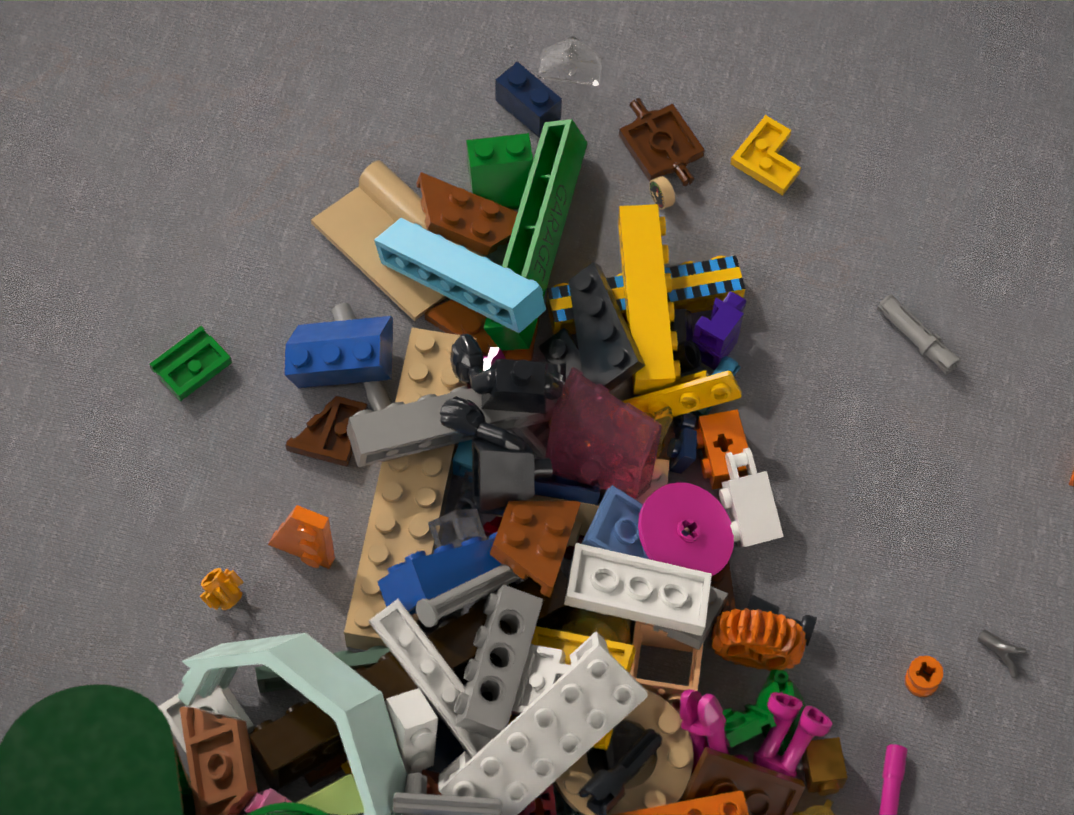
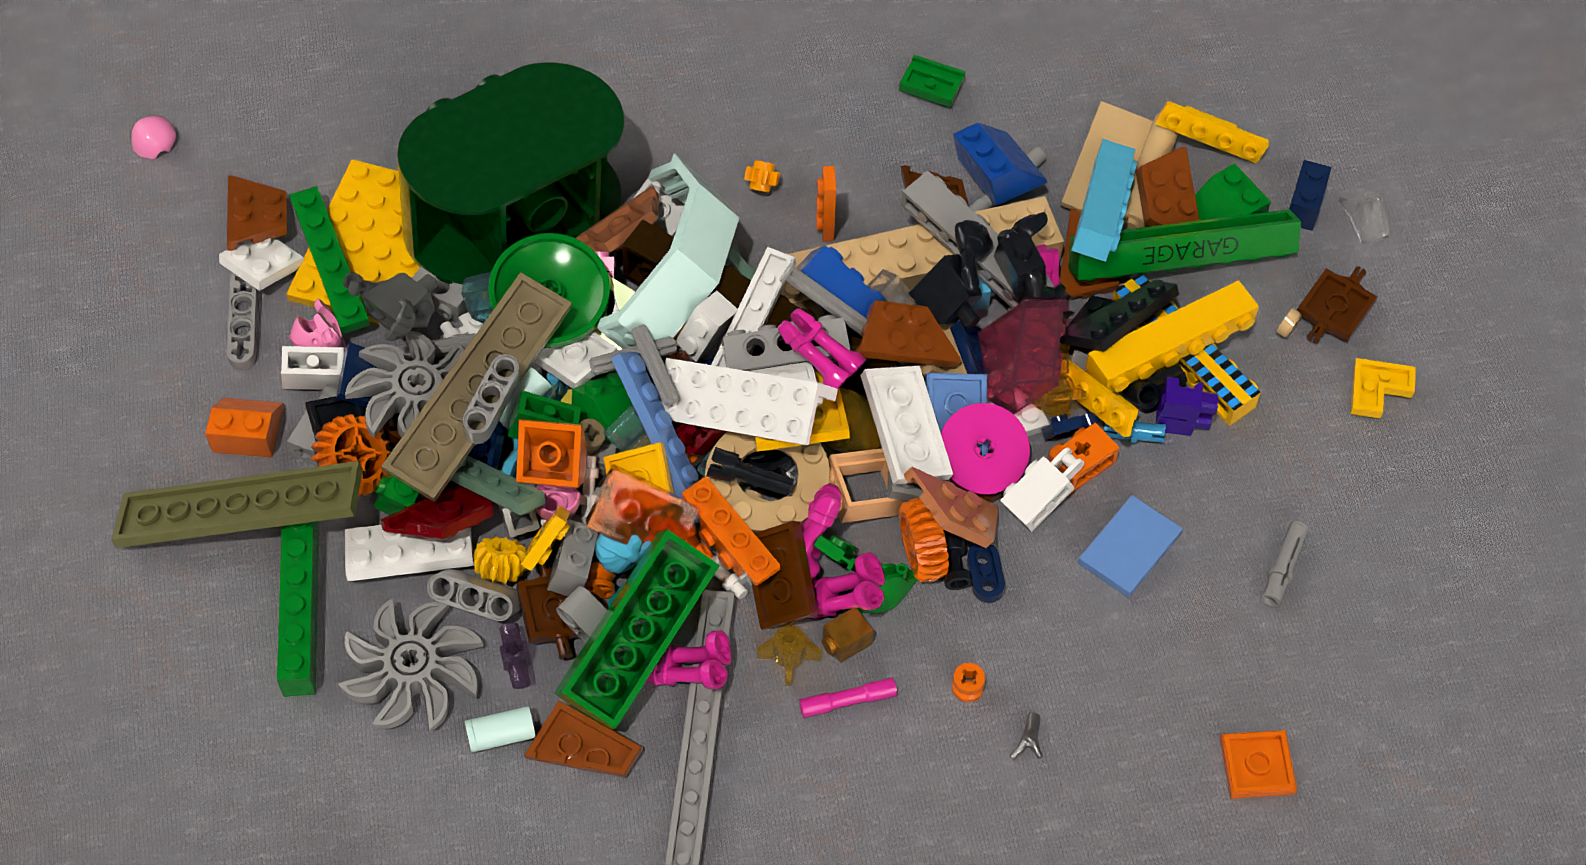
camera: 65 degrees right, 5 degrees down
(410, 139) = (1212, 131): none -> yellow bracket
(559, 606) = (832, 374): none -> dark pink piece
(751, 589) = (956, 509): none -> nougat wing
(809, 599) = (986, 574): none -> dark blue plate
(836, 457) = (1130, 546): none -> medium blue tile

